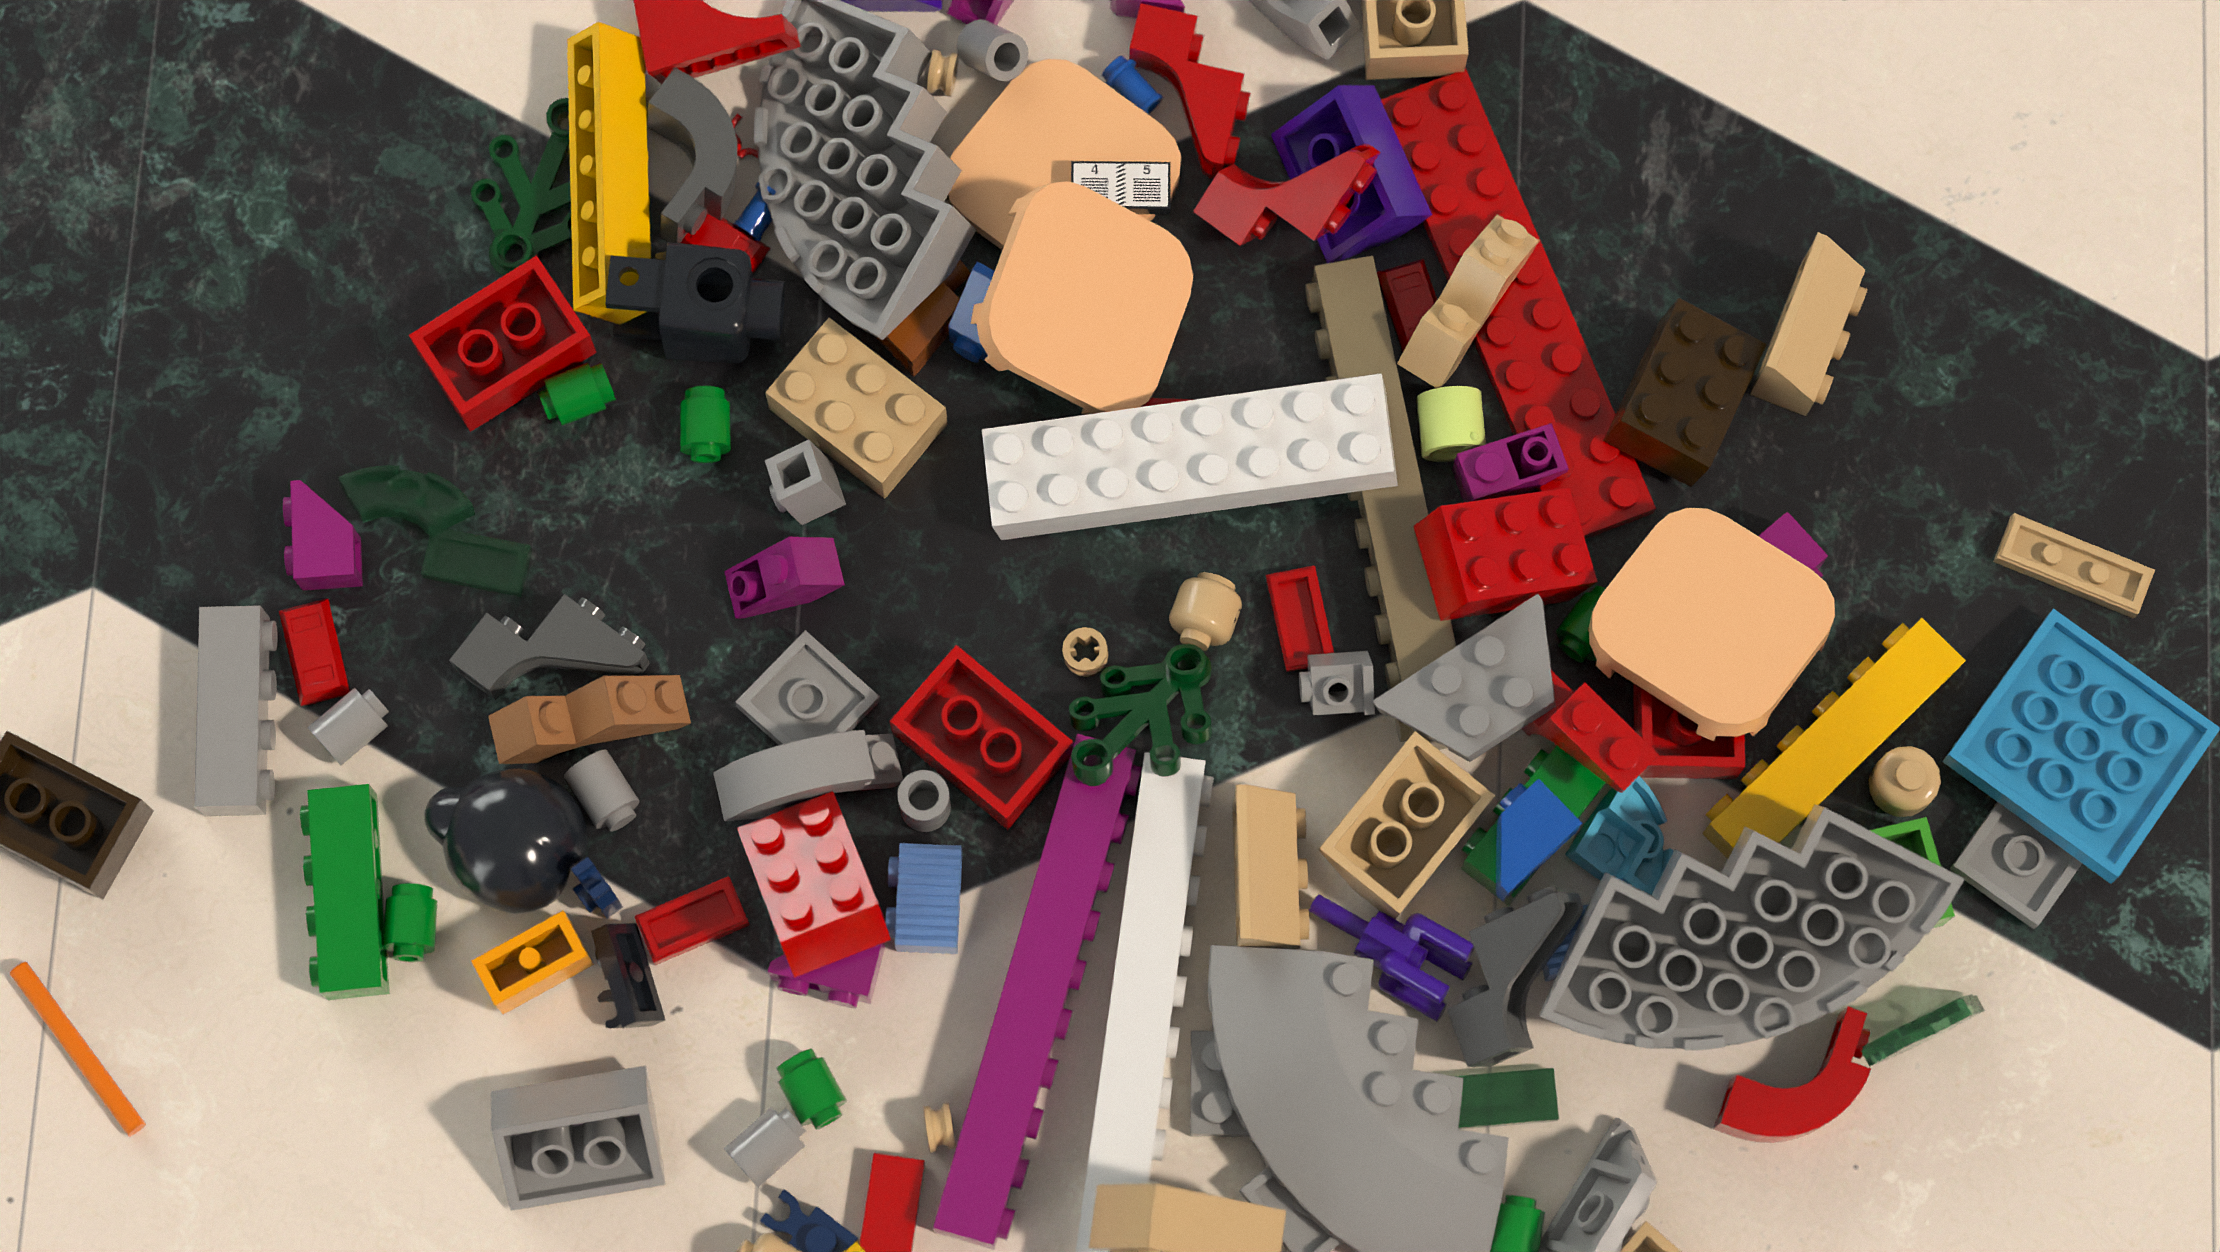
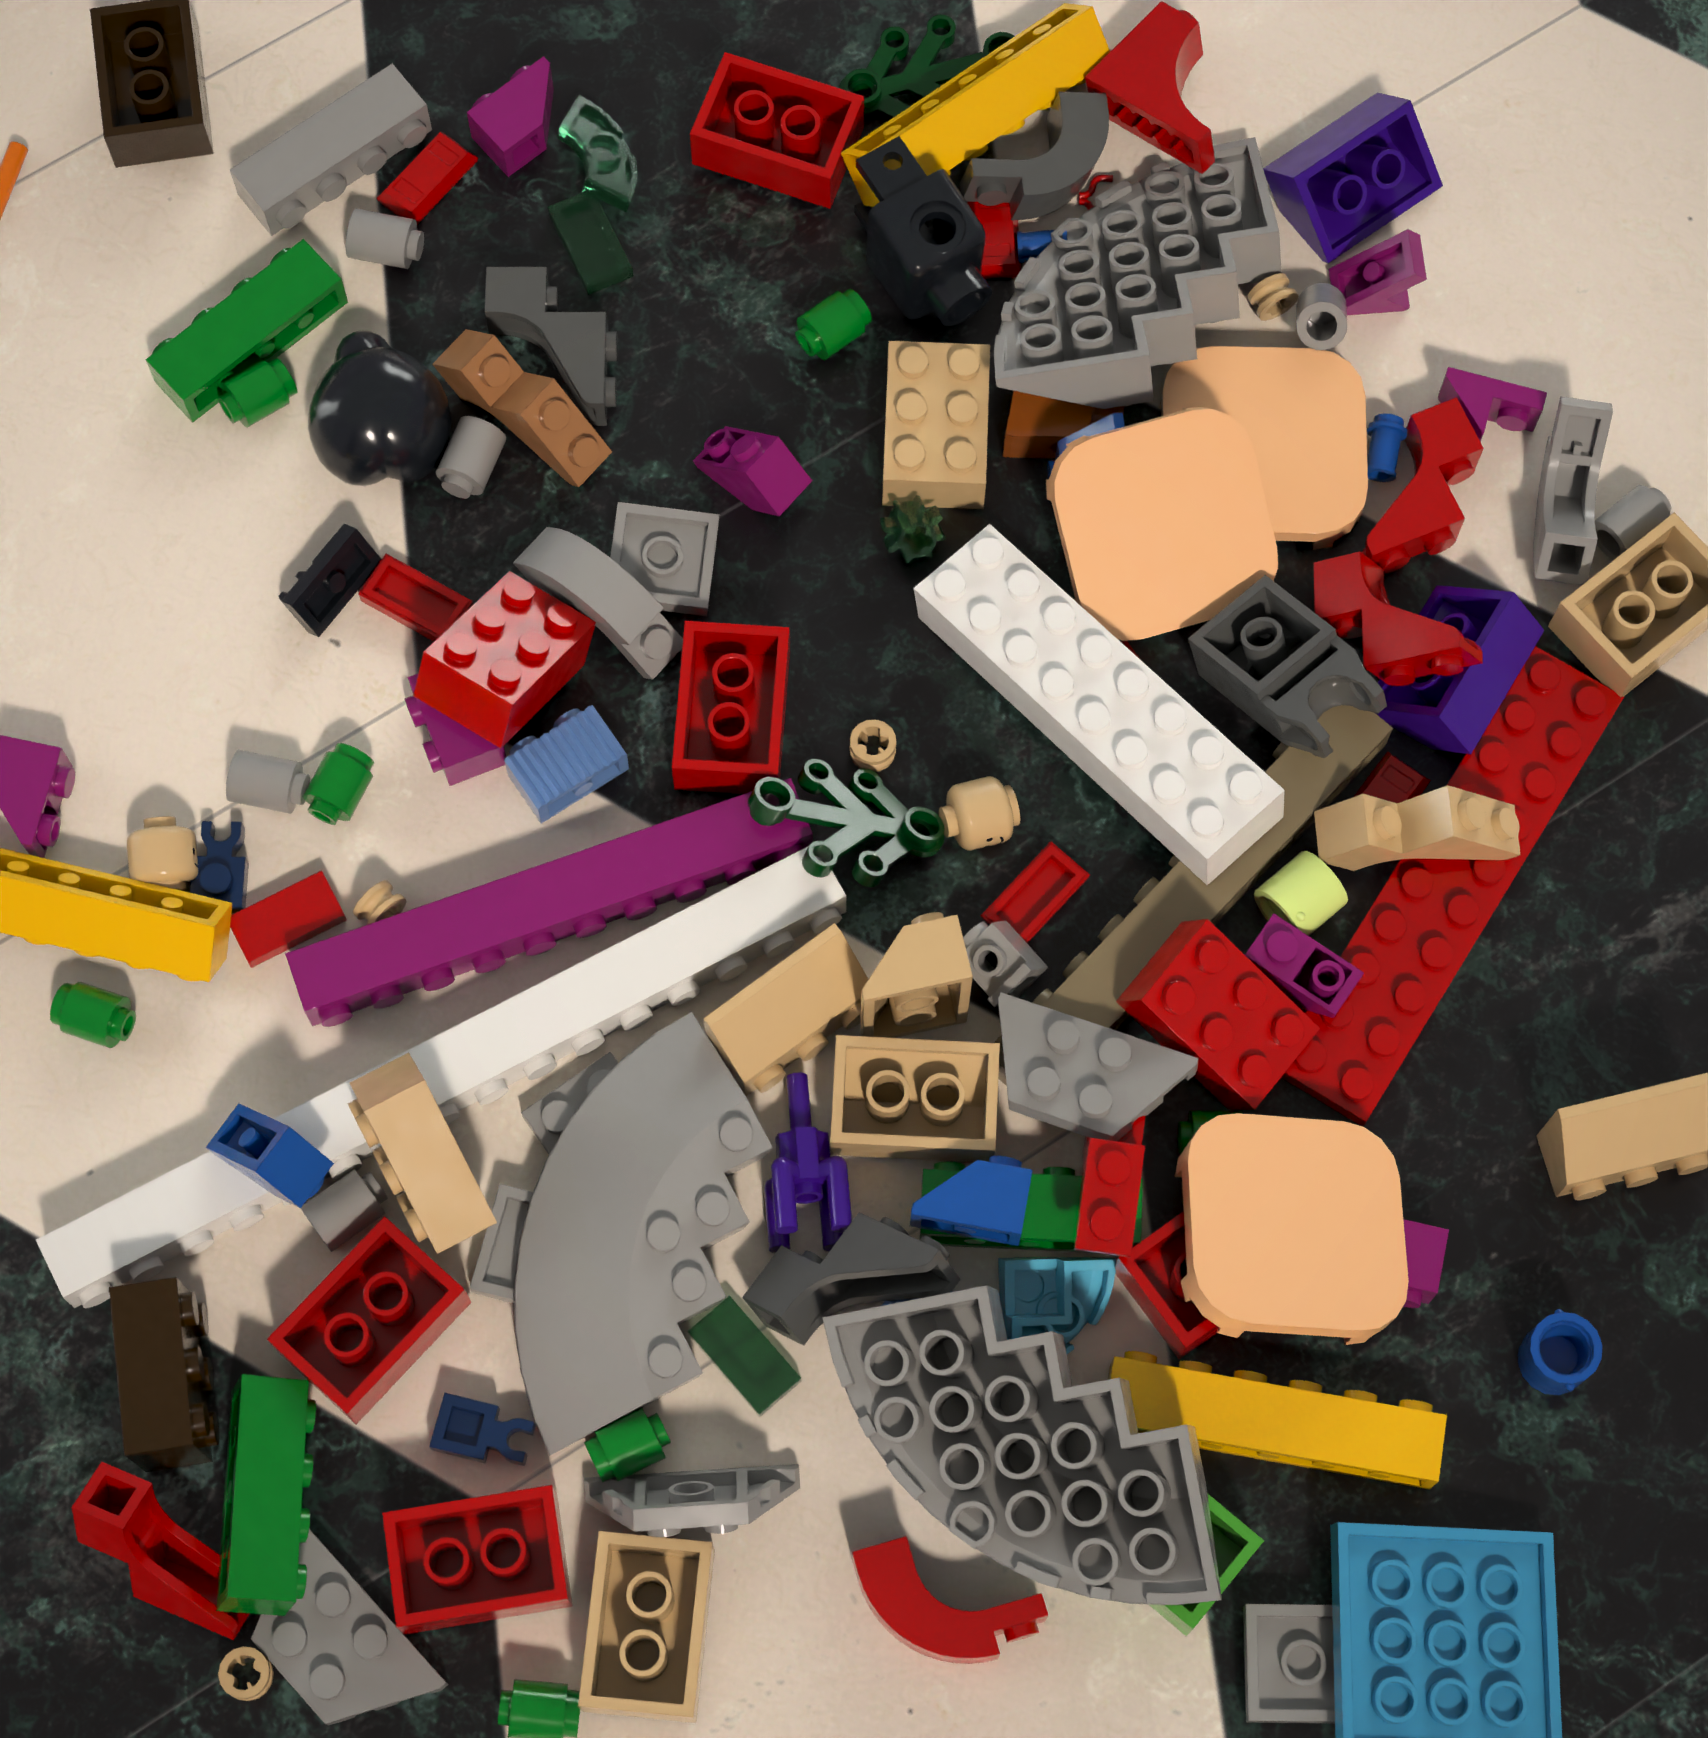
camera: 55 degrees right, 5 degrees down
(532, 962) = (286, 498): light orange brick -> none
(576, 393) = (782, 214): green brick -> none
(577, 1138) = (169, 634): light grey slope -> none
(594, 890) = (384, 503): dark blue plate -> none
(804, 482) = (840, 426): light grey brick -> none
(924, 800) = (643, 700): light grey brick -> none
(932, 490) = (912, 529): none -> clear green gear
(1134, 185) = (1291, 494): white tile -> none
(1278, 297) = (1282, 665): none -> dark grey brick
(1320, 748) = (919, 981): none -> tan slope
(1685, 392) = (1484, 1068): dark brown brick -> none
(1904, 781) = (1288, 1506): tan head -> none
(1922, 1029) = (1073, 1679): clear green tile -> none
(1929, 503) = (1559, 1353): none -> blue piece
(2074, 565) = (1610, 1528): tan tile -> none

